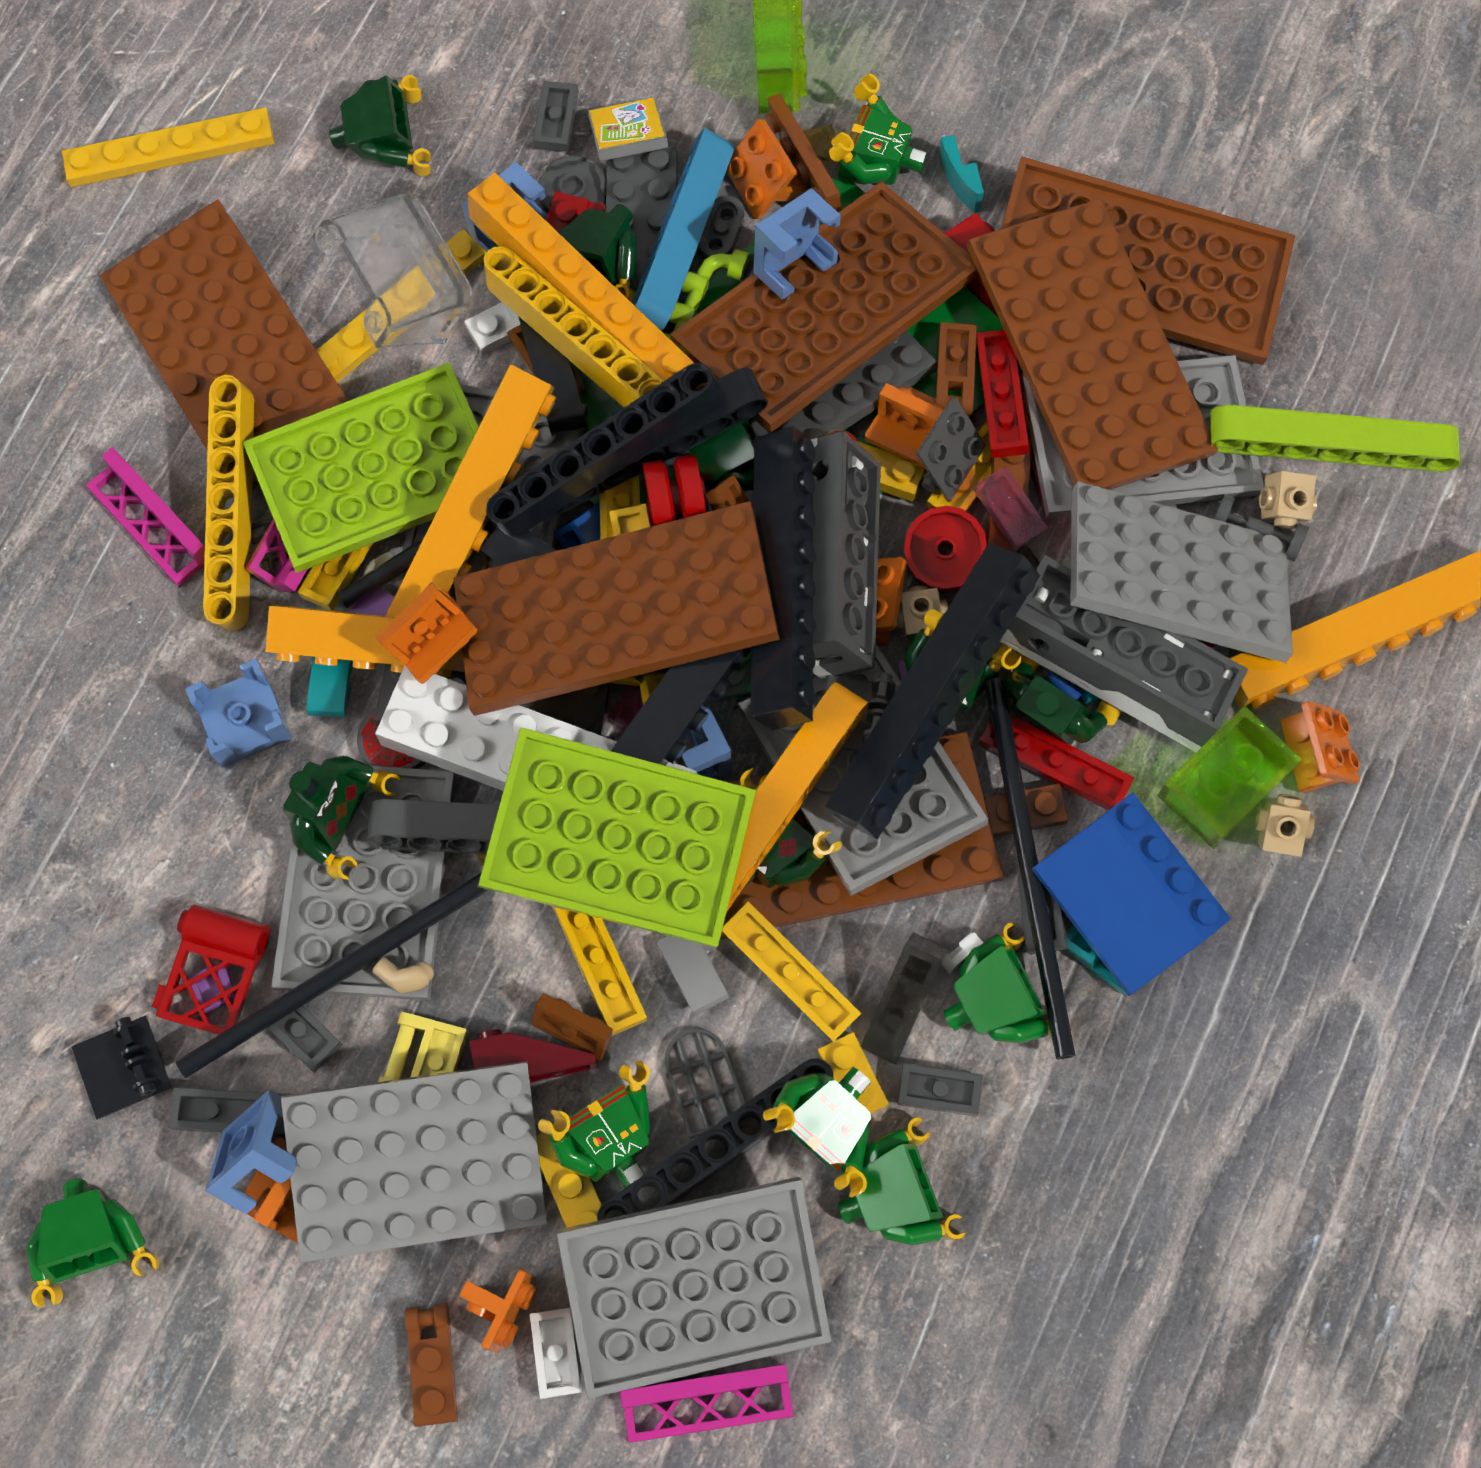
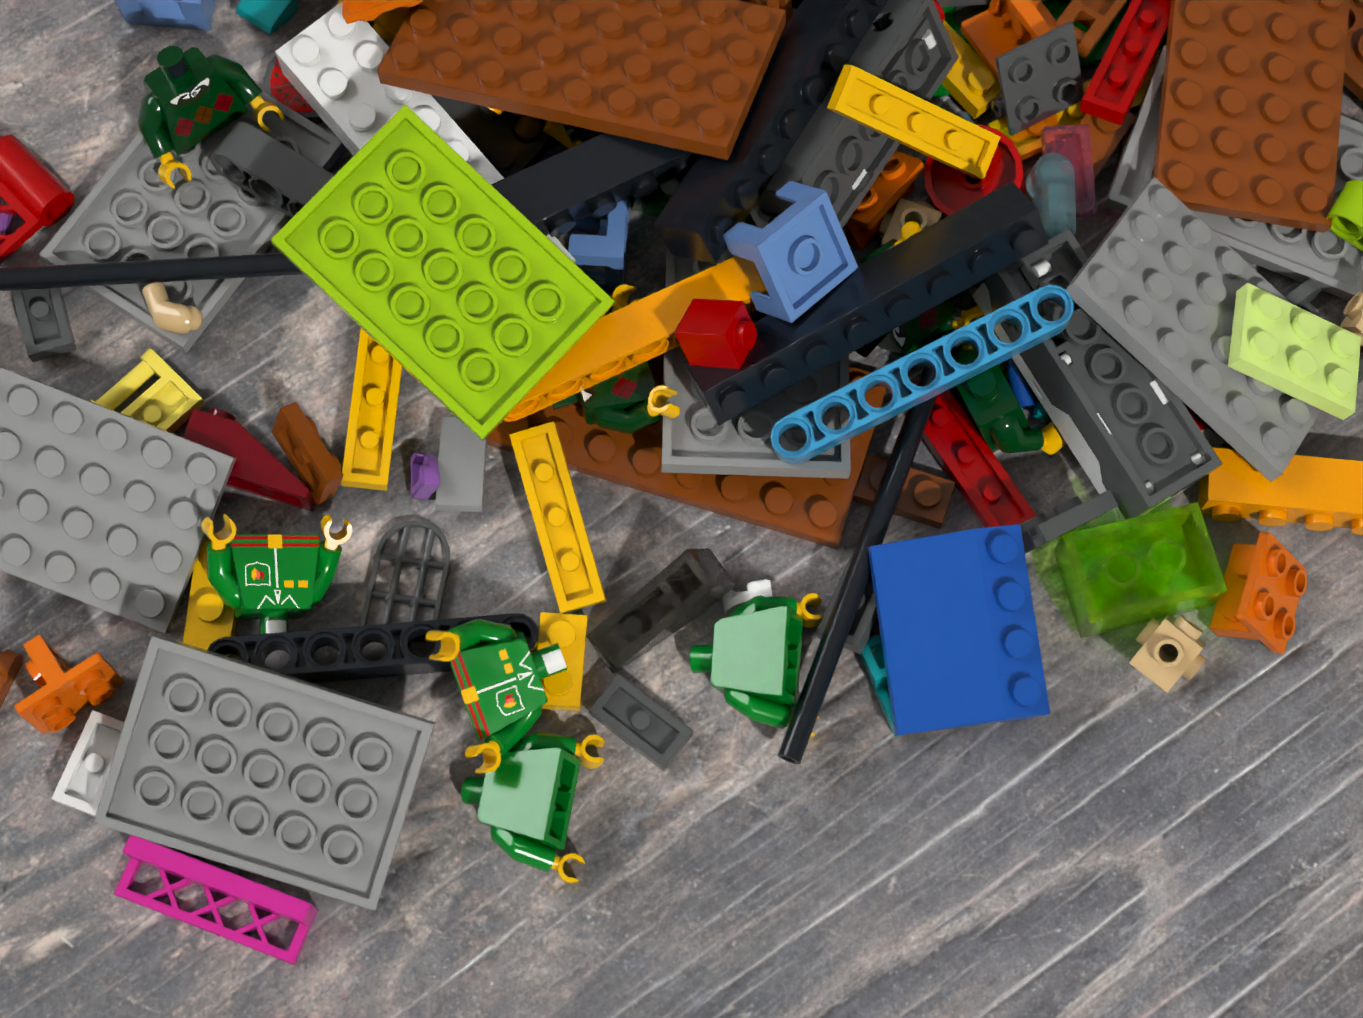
camera: 25 degrees right, 0 degrees up
(669, 993) = (424, 475): none -> medium lavender tile
(842, 772) = (716, 333): none -> red brick
(869, 684) = (796, 254): none -> medium blue panel
(889, 535) = (913, 122): none -> yellow plate
(1014, 532) = (1053, 193): none -> clear light blue leg
(1019, 708) = (936, 356): none -> dark azure beam
(1159, 768) = (1069, 516): none -> dark grey plate
(1248, 557) = (1295, 351): none -> yellowish green plate

